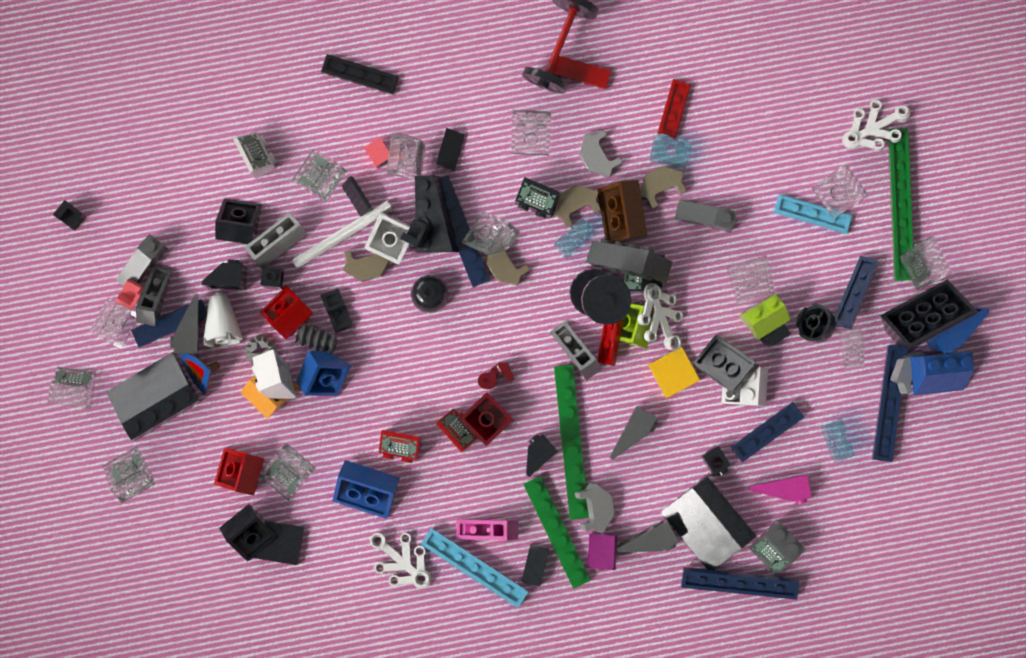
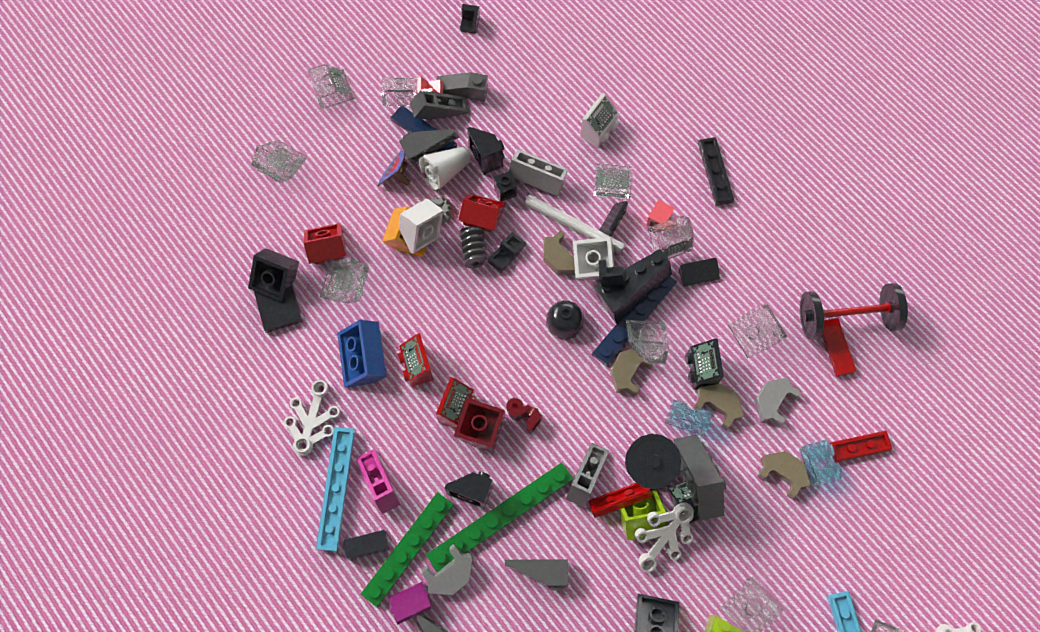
camera: 60 degrees right, 15 degrees down
(153, 397) = (353, 148): slope -> none
(237, 221) = (536, 137): black slope -> none
(322, 374) = (444, 265): blue slope -> none
(622, 211) = (740, 448): reddish brown slope -> none
(673, 372) = (619, 580): yellow tile -> none
(706, 215) = (784, 530): dark grey slope -> none

